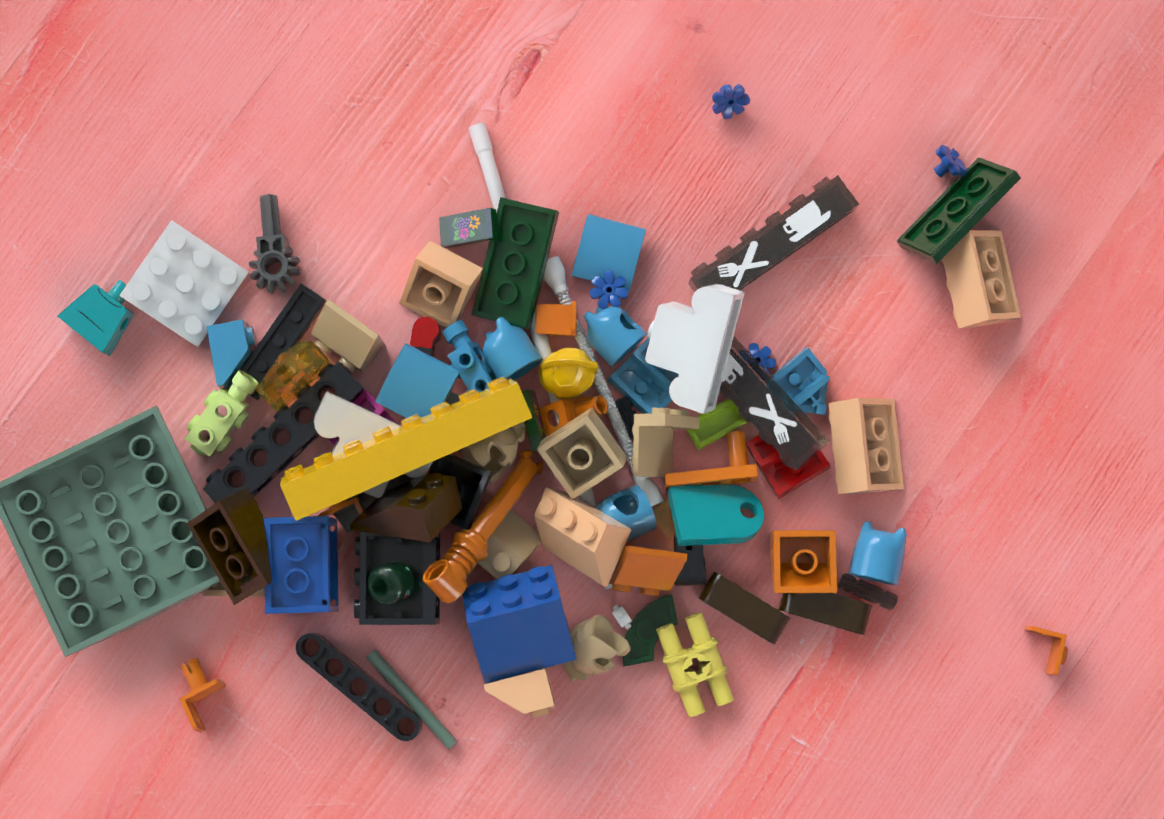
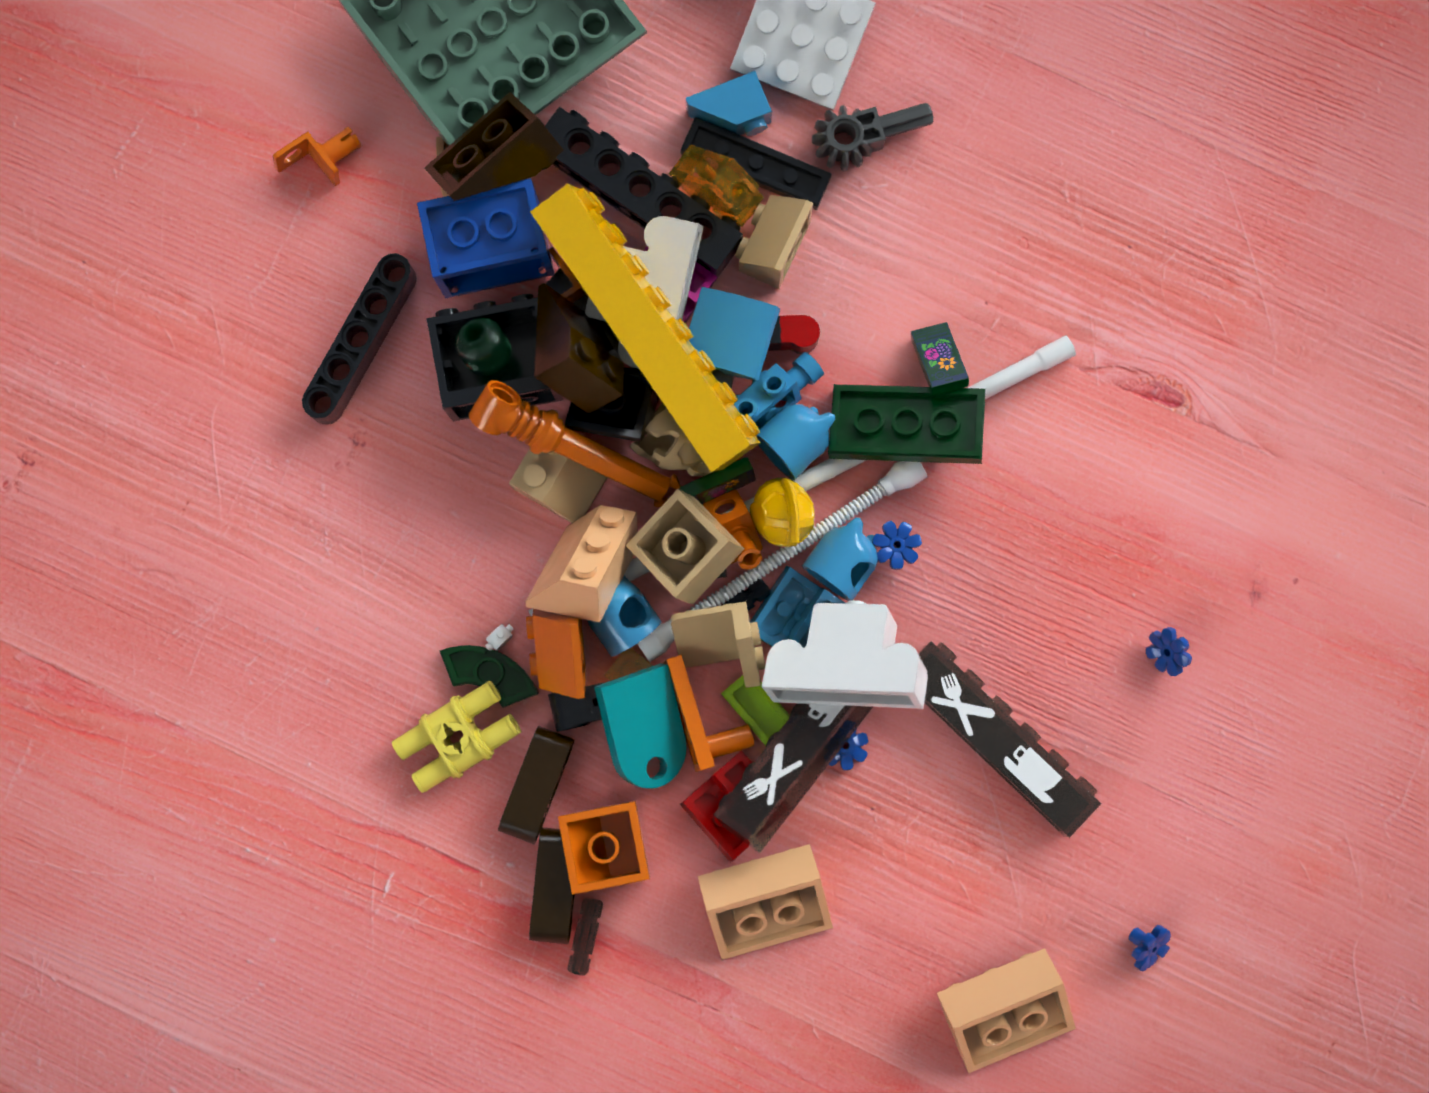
camera: 85 degrees right, 0 degrees up
(219, 425) = (639, 112): yellowish green brick -> none
(411, 699) = (356, 405): sand green bar -> none
(440, 284) = (863, 339): light nougat slope -> none
(518, 624) = (463, 509): blue container -> none
(525, 692) = (385, 534): light nougat slope -> none
(556, 319) = (847, 488): orange bracket -> none
(594, 648) = (454, 608): tan helmet -> none
(608, 247) = (951, 535): dark azure slope -> none
(804, 381) = (830, 809): dark azure slope -> none
(878, 555) = (631, 940): dark azure piece -> none
(958, 210) = (1088, 966): dark green tile -> none

